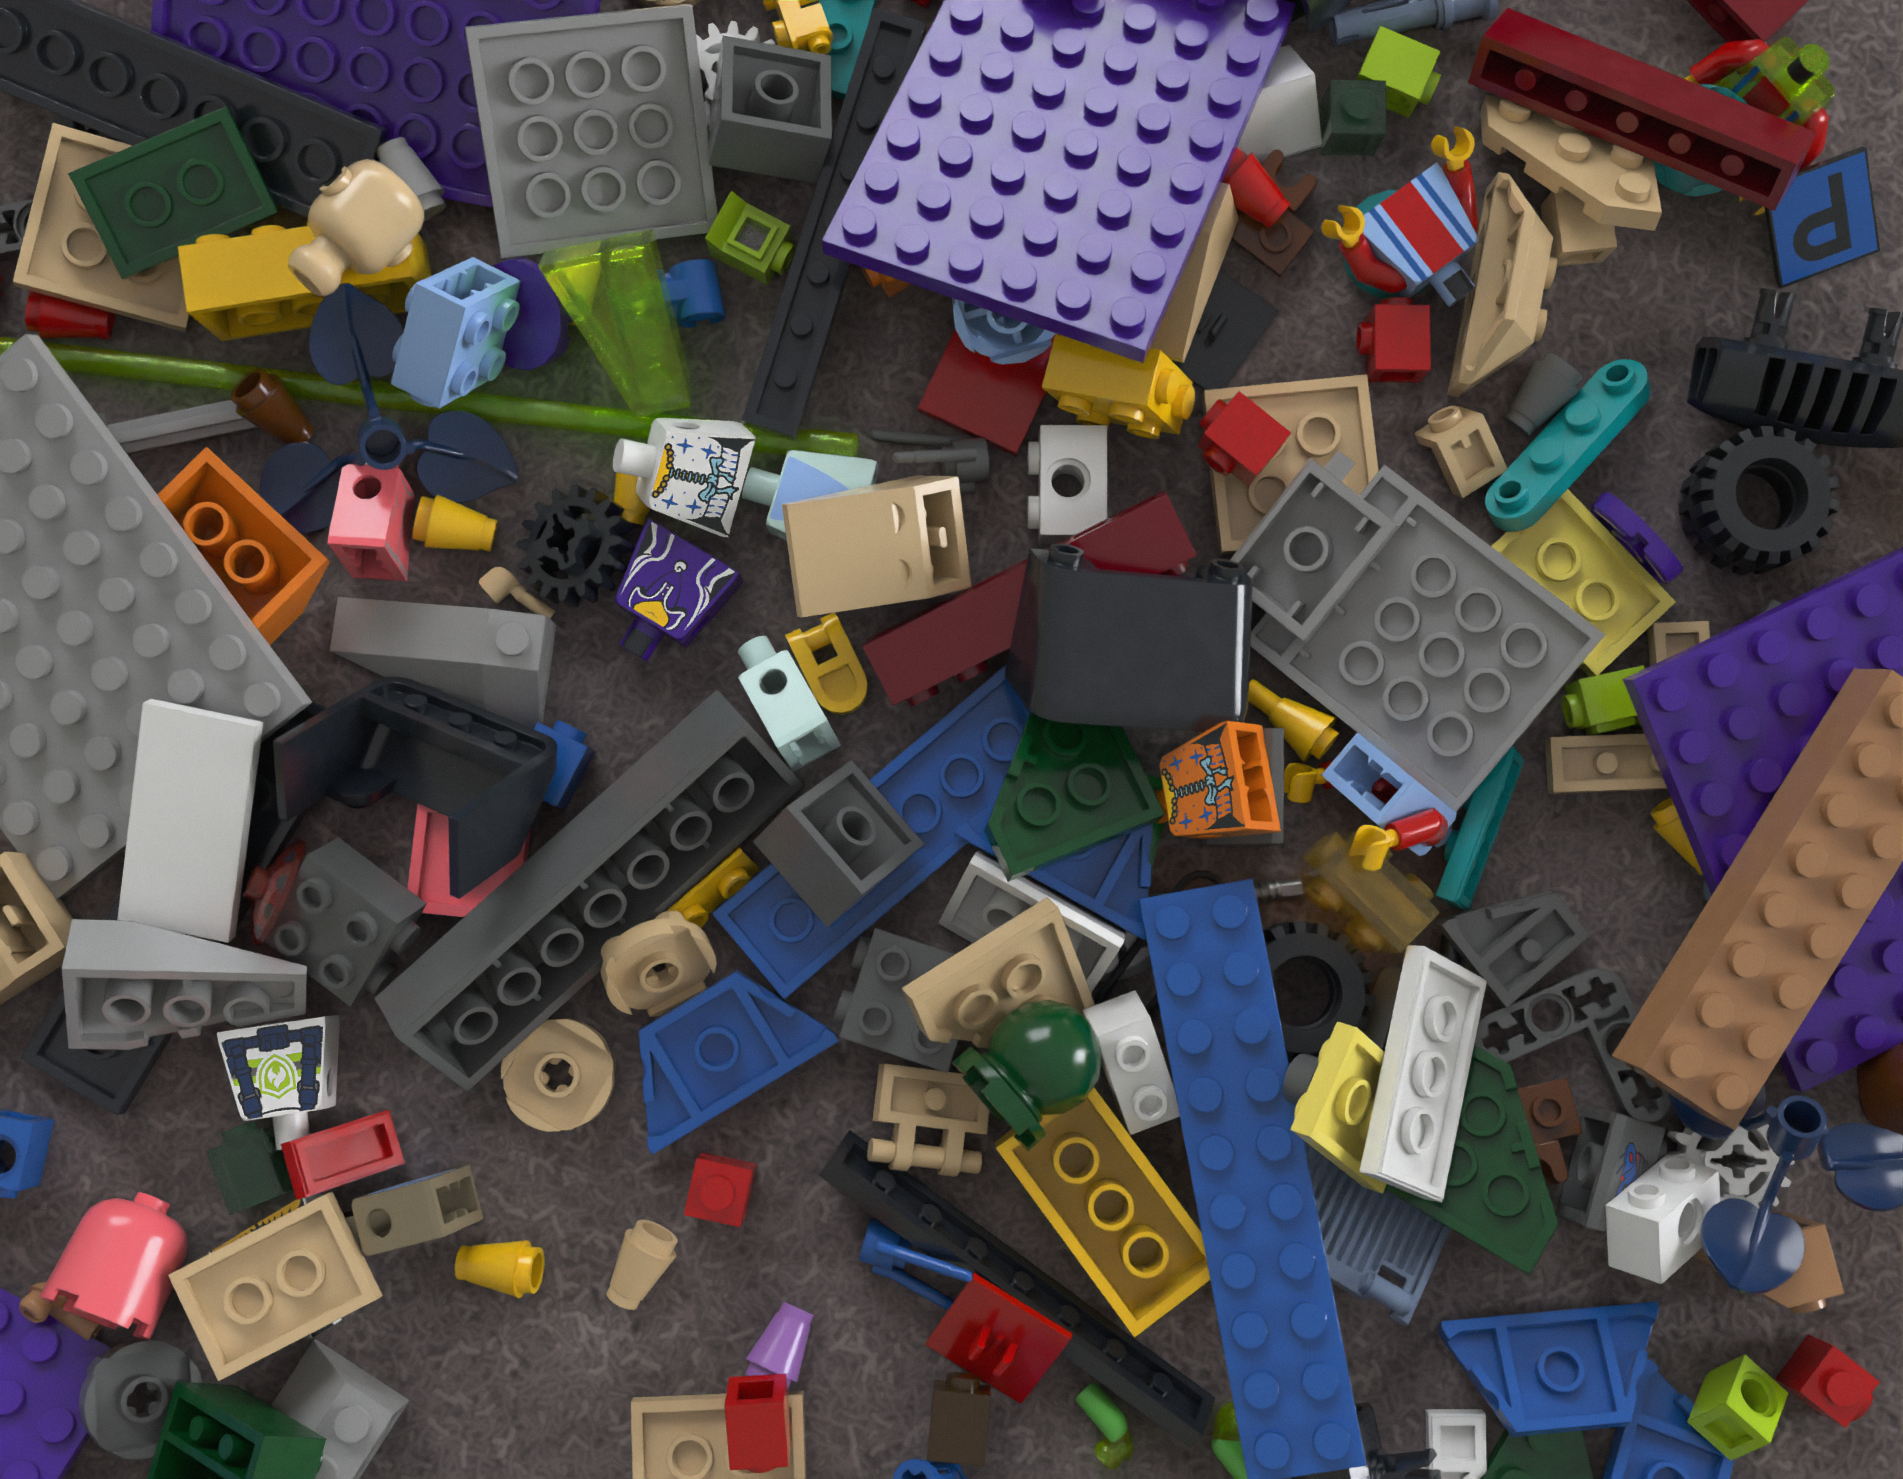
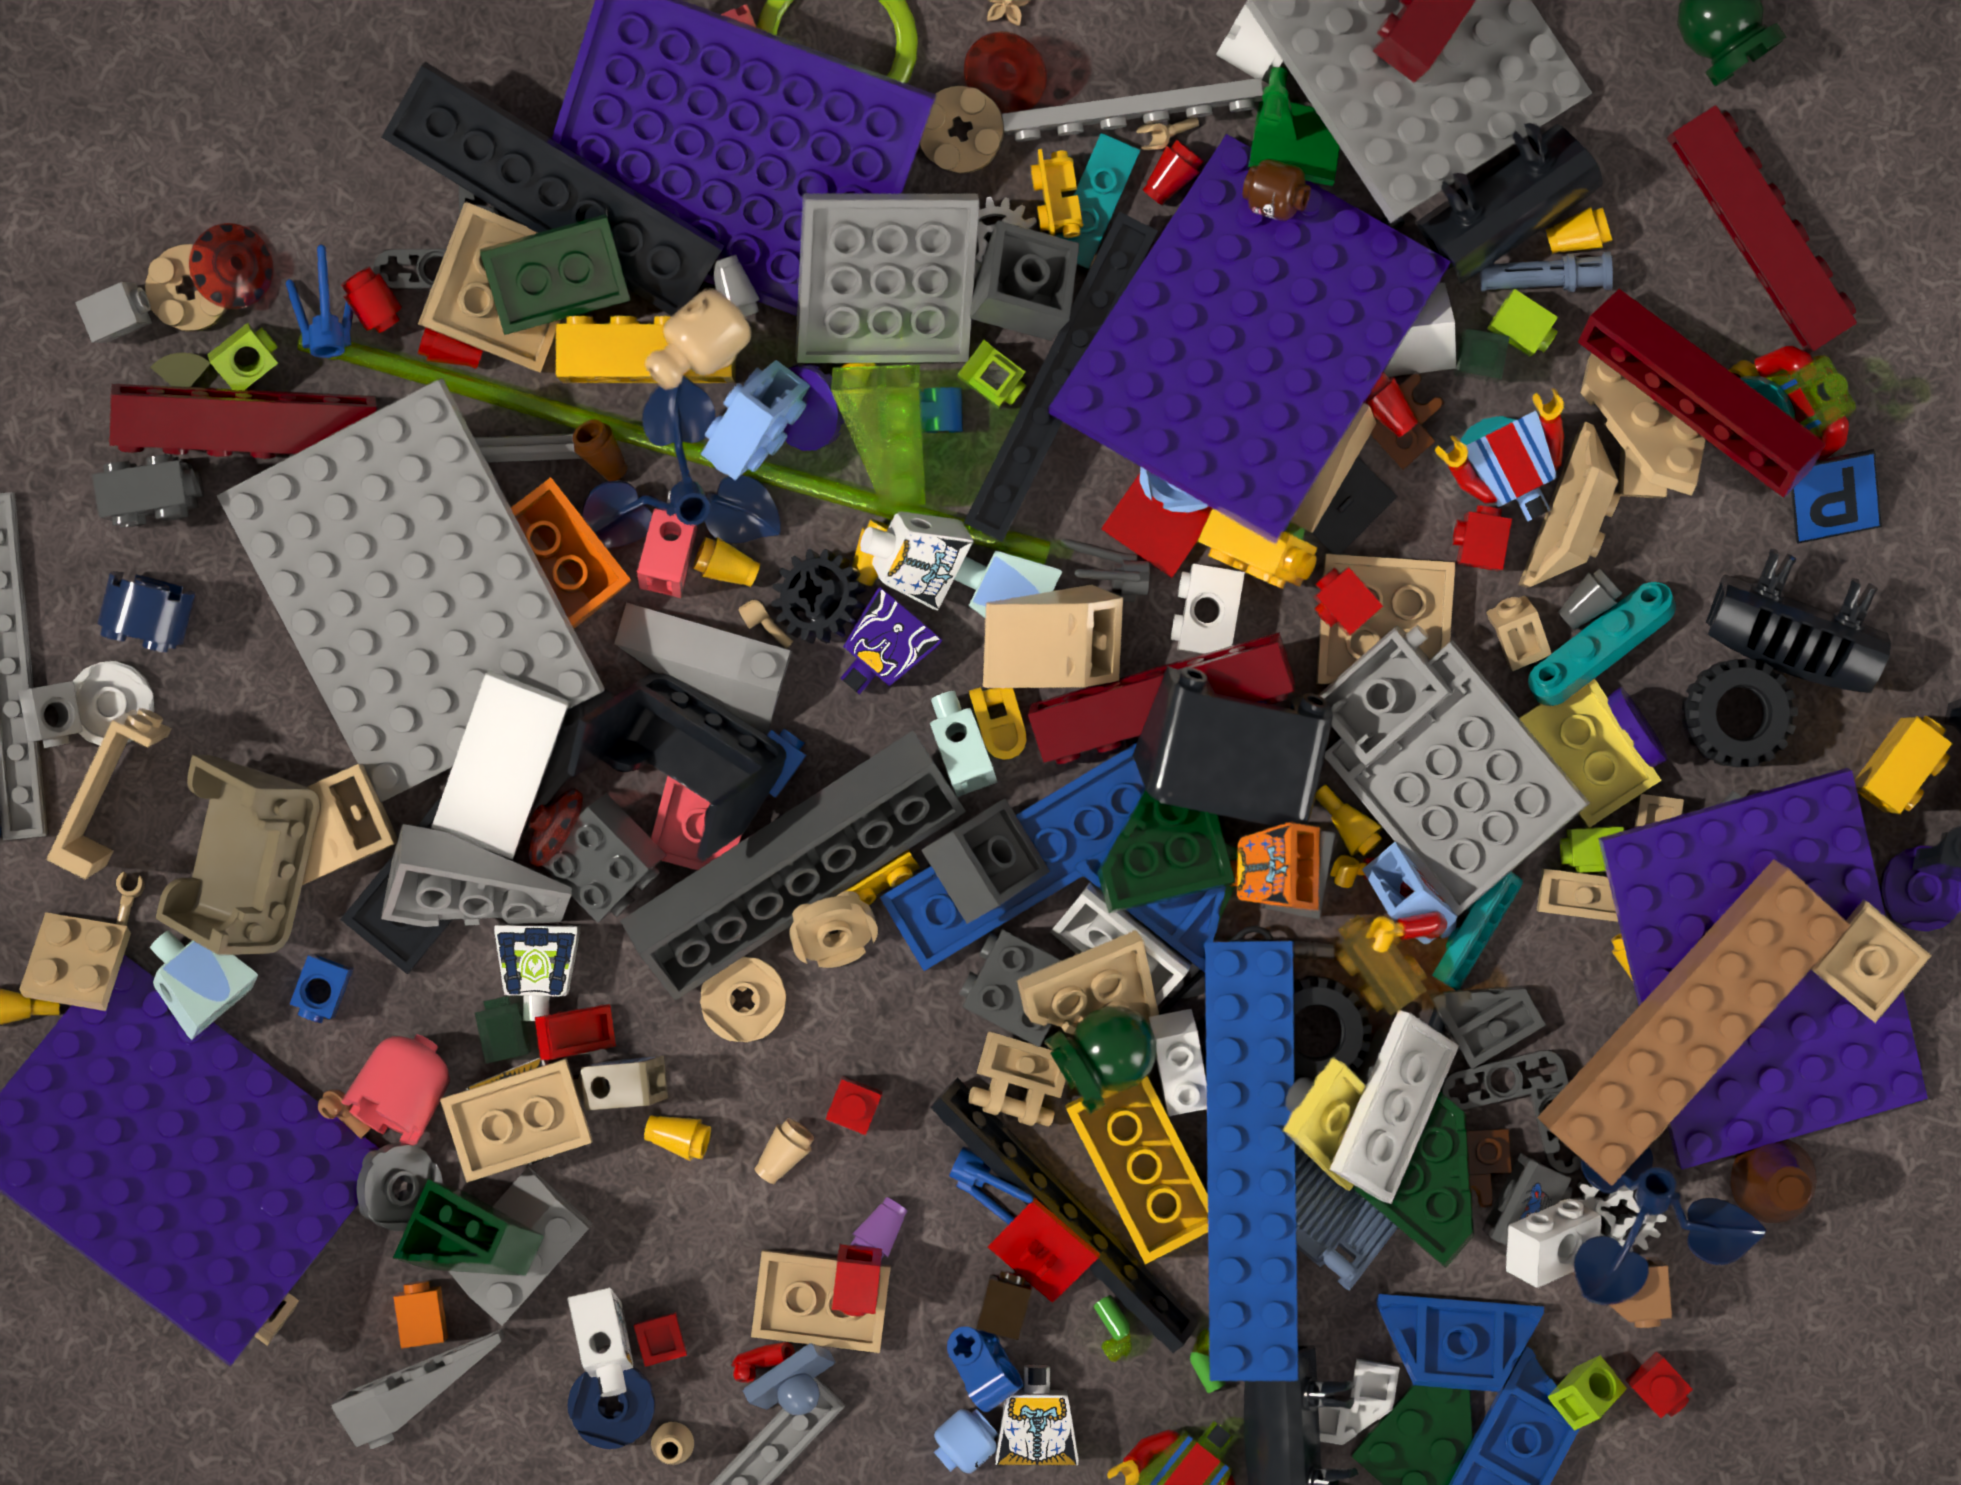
camera: 15 degrees right, 5 degrees up
(719, 1053) = (868, 1003): blue wing -> none

